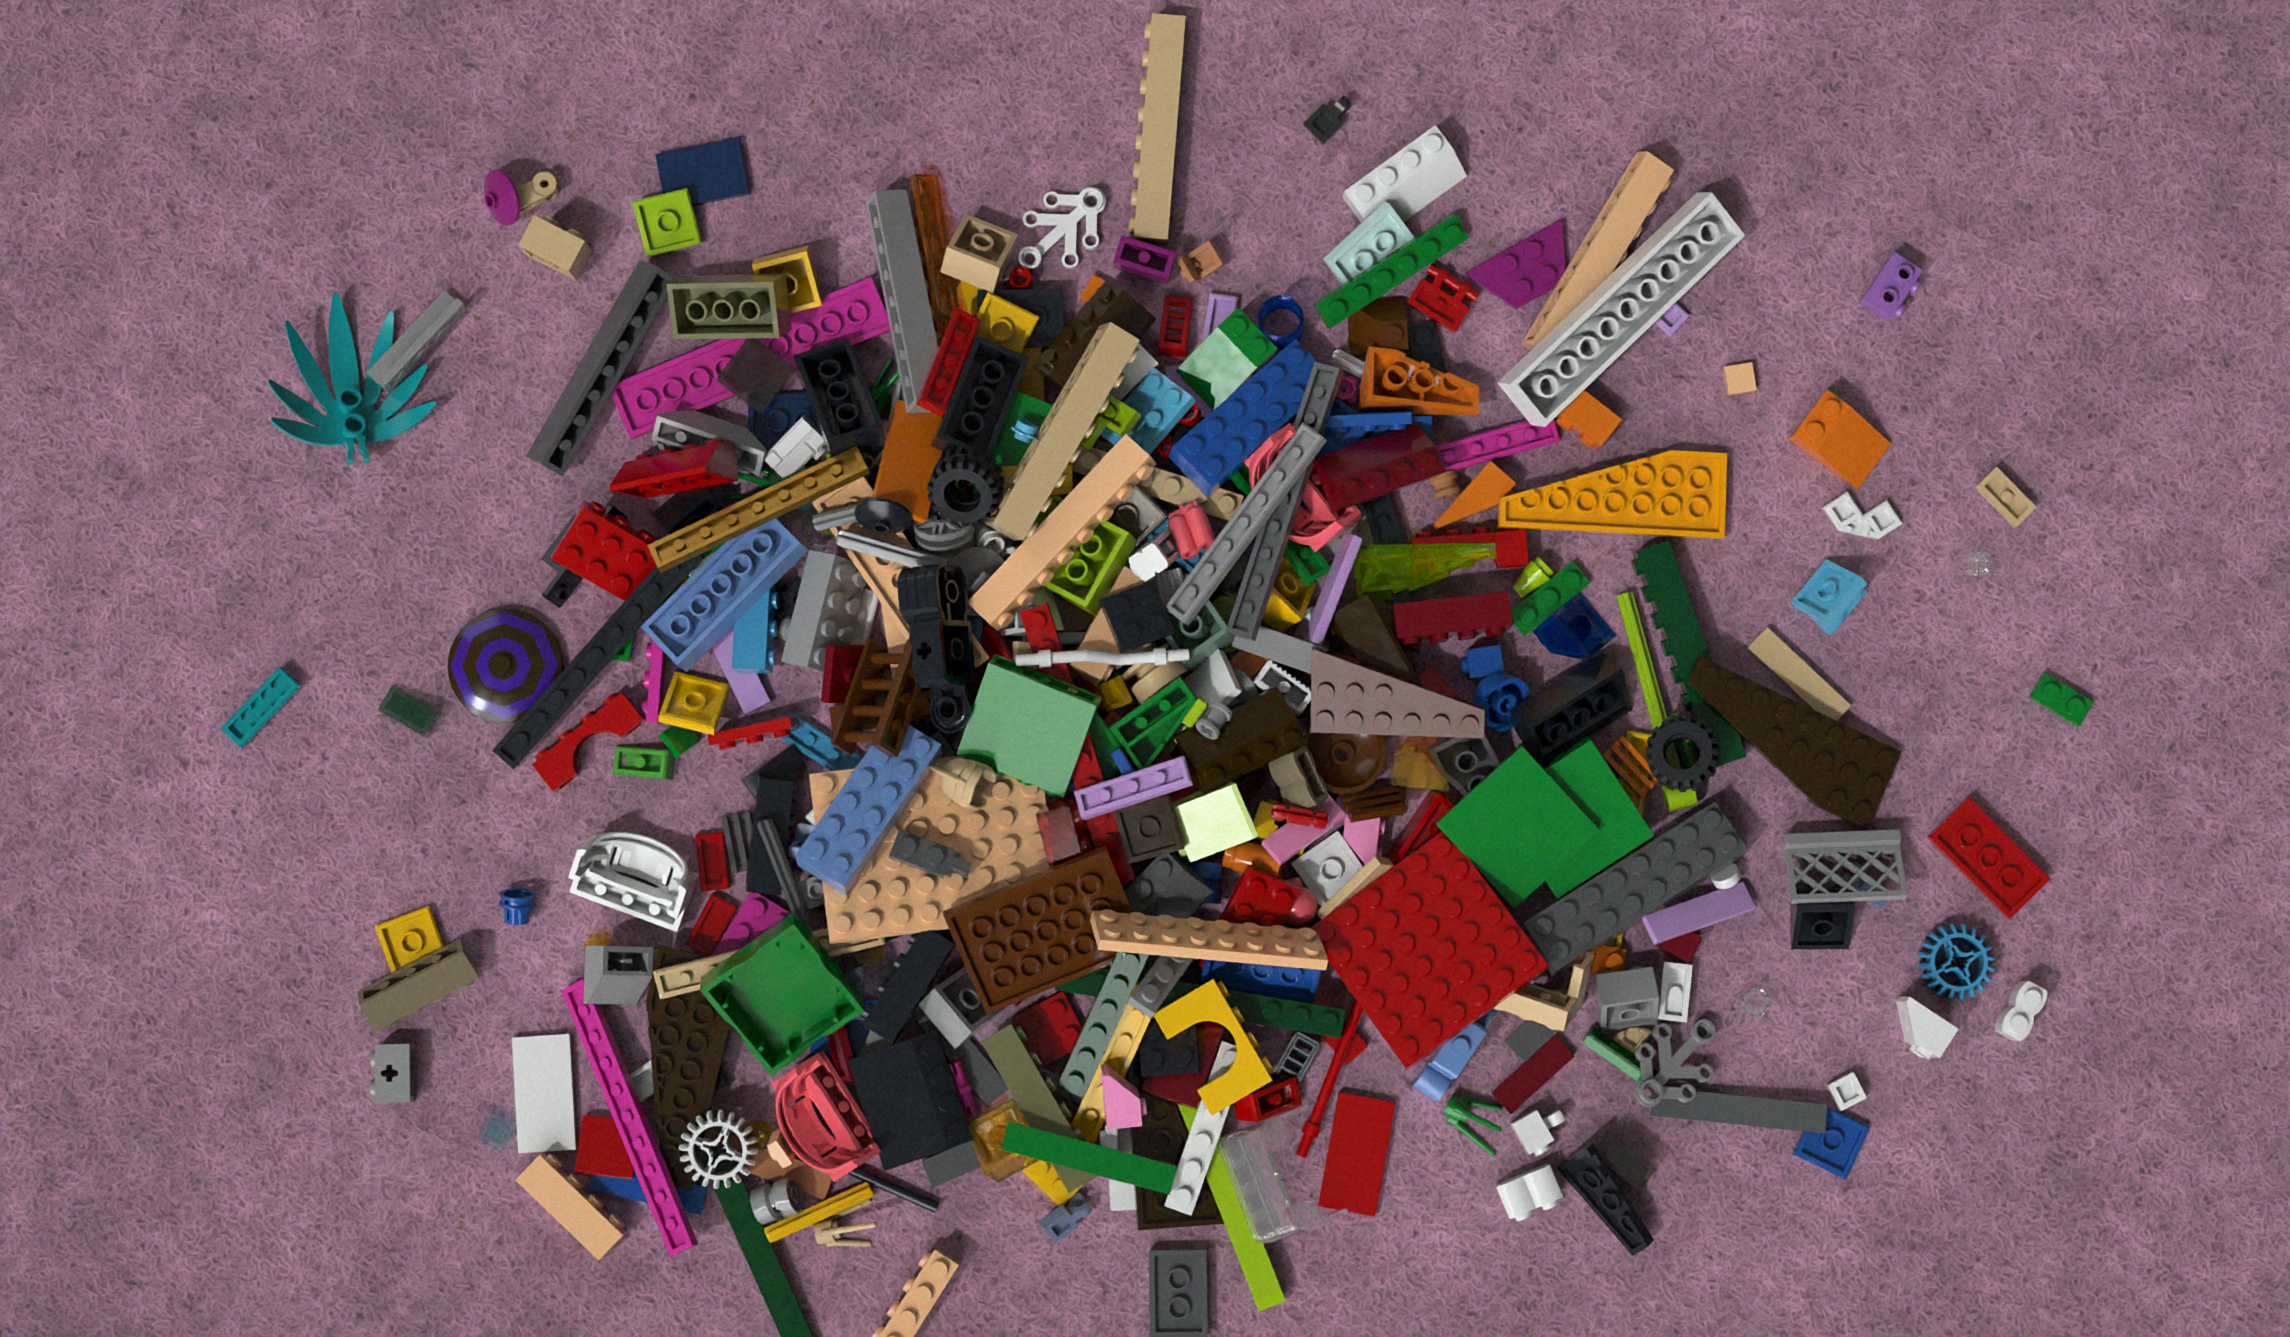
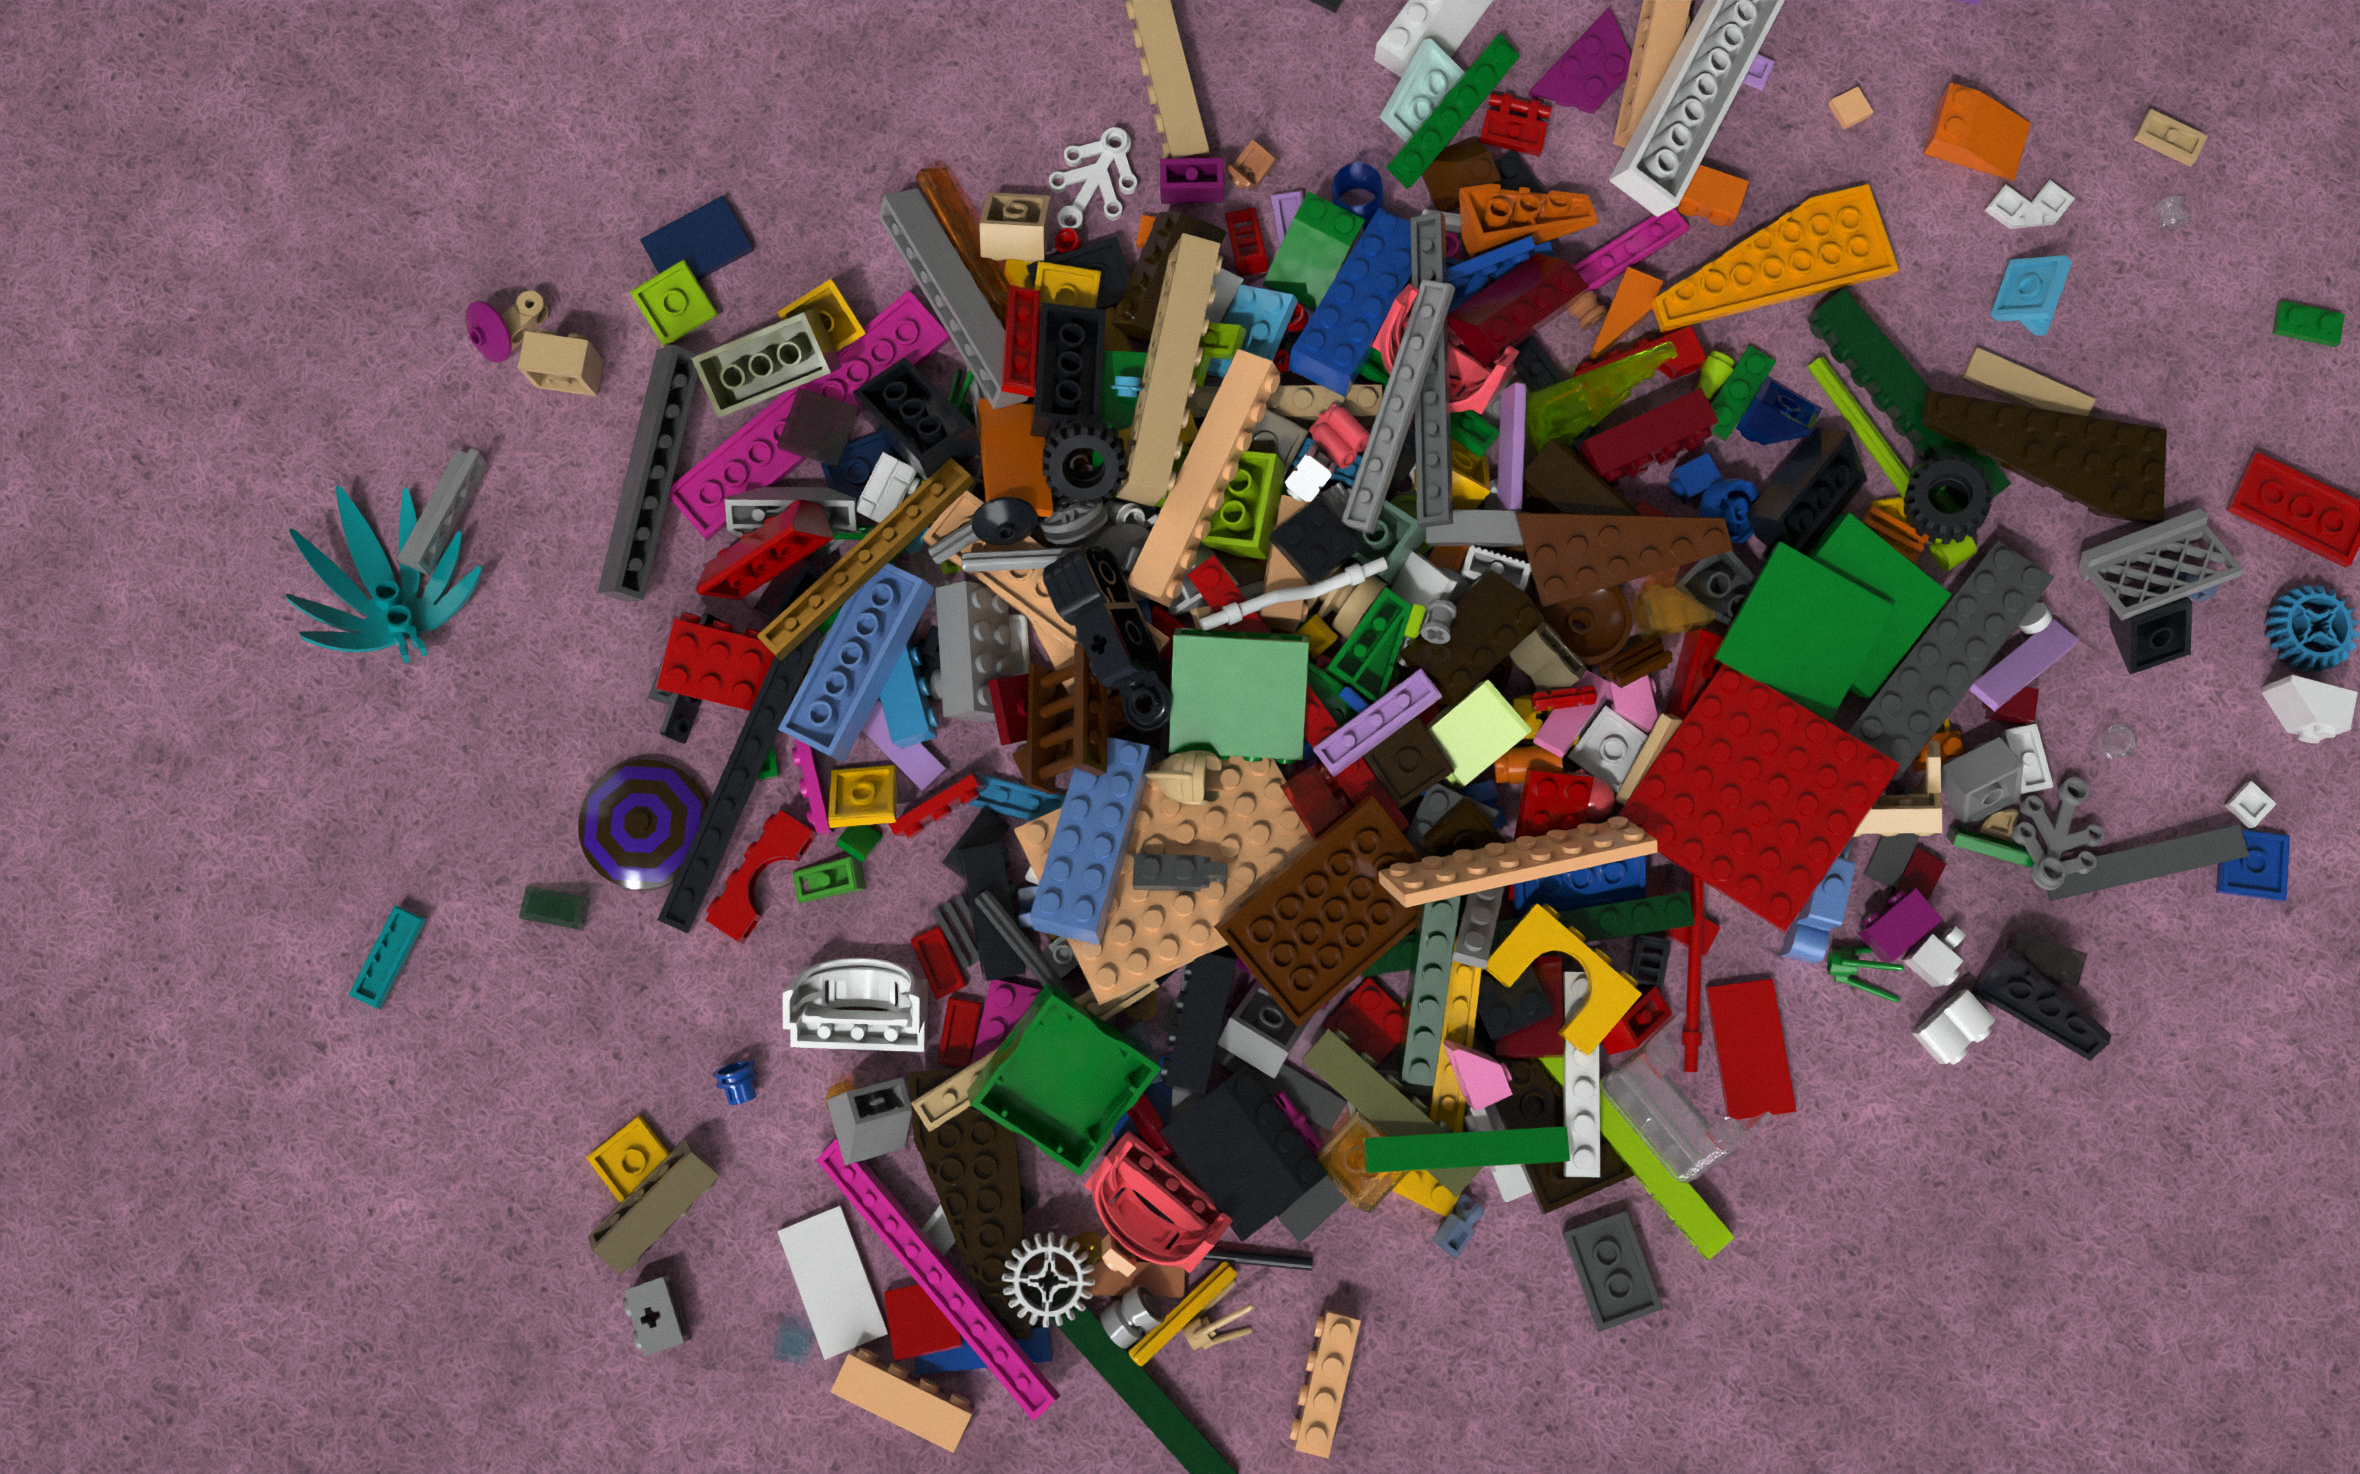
camera: 15 degrees left, 5 degrees down
(1173, 898) = (1459, 829): none -> dark brown tile
(1512, 1093) = (1899, 924): none -> magenta brick

